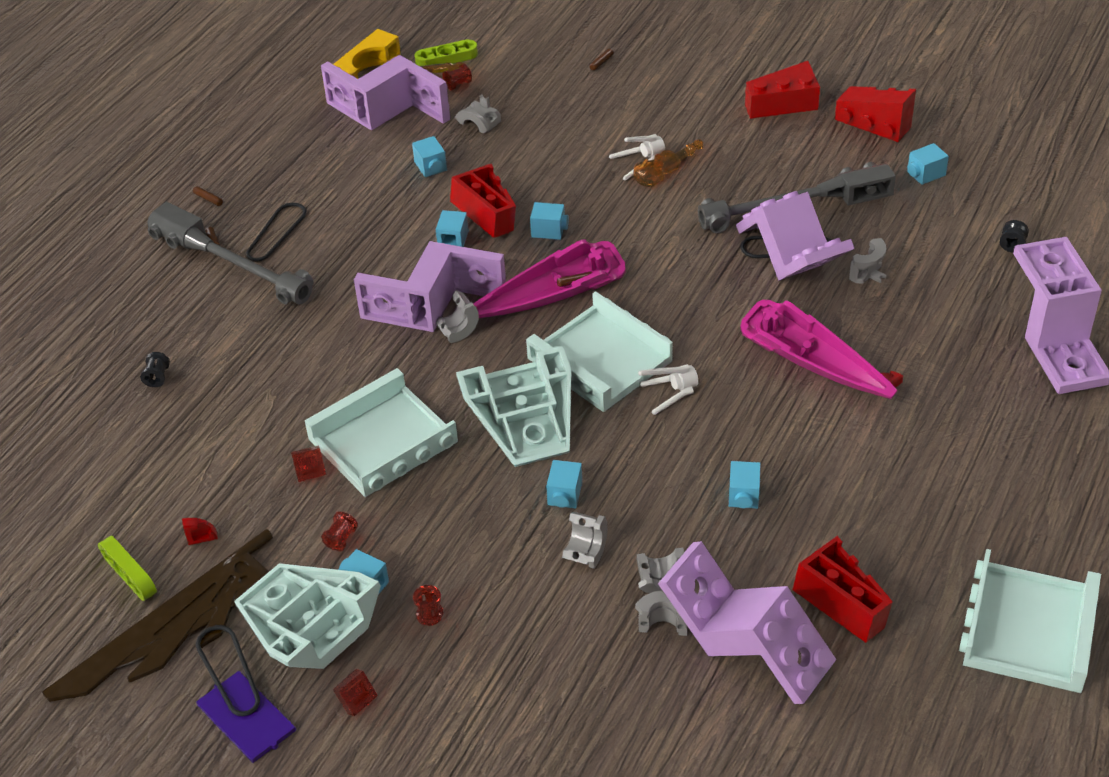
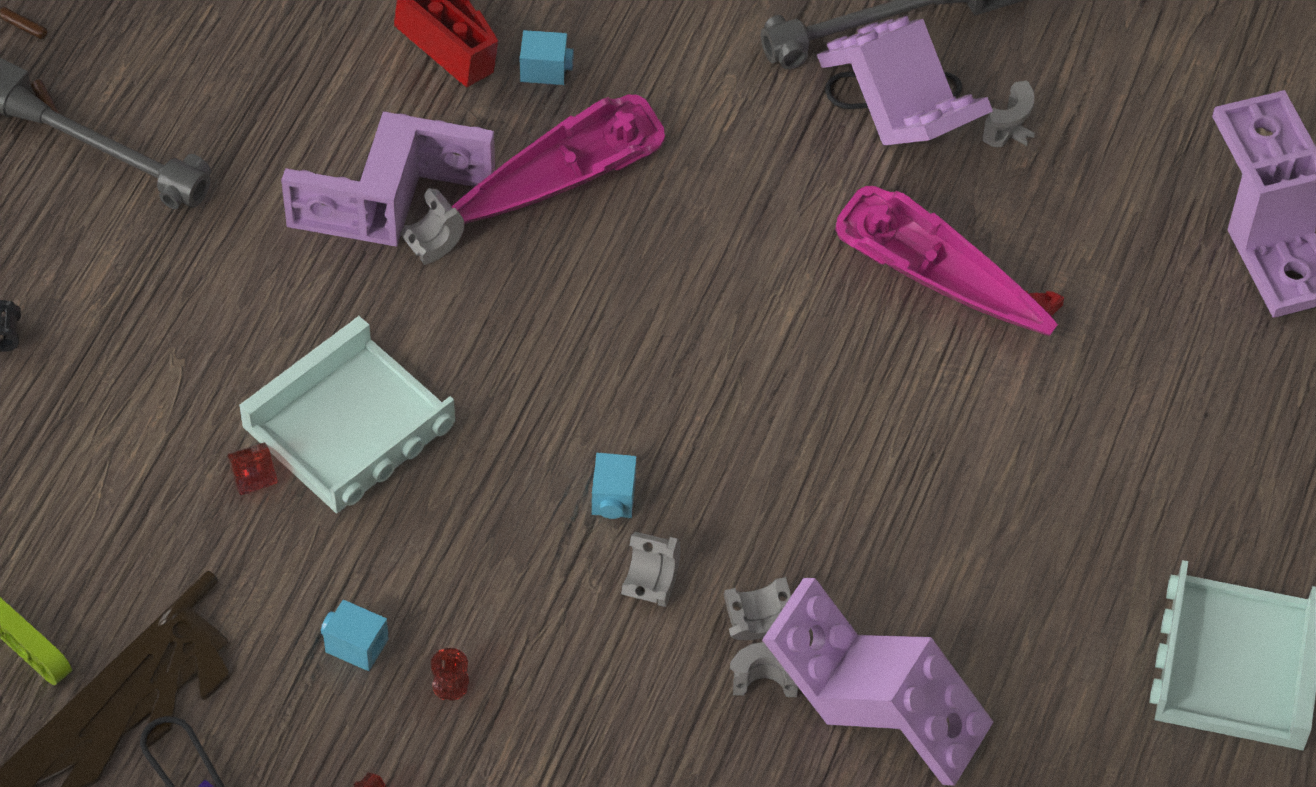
camera: 10 degrees left, 10 degrees up
(198, 530) = (114, 578): red tile -> none
(282, 238) = (122, 72): black piece -> none
(308, 612) = (288, 693): light aqua wedge -> none
(339, 531) = (311, 570): clear red bush -> none
(452, 228) = (404, 77): medium azure brick -> none
(524, 405) = (545, 366): light aqua wedge -> none
(565, 281) = (588, 160): reddish brown piece -> none
(606, 351) = (643, 275): light aqua panel -> none
(680, 377) = (758, 314): white plant -> none
(744, 484) = (858, 476): medium azure brick -> none
(842, 590) = (998, 627): red wedge -> none
(1013, 234) = (1211, 66): black wheel -> none

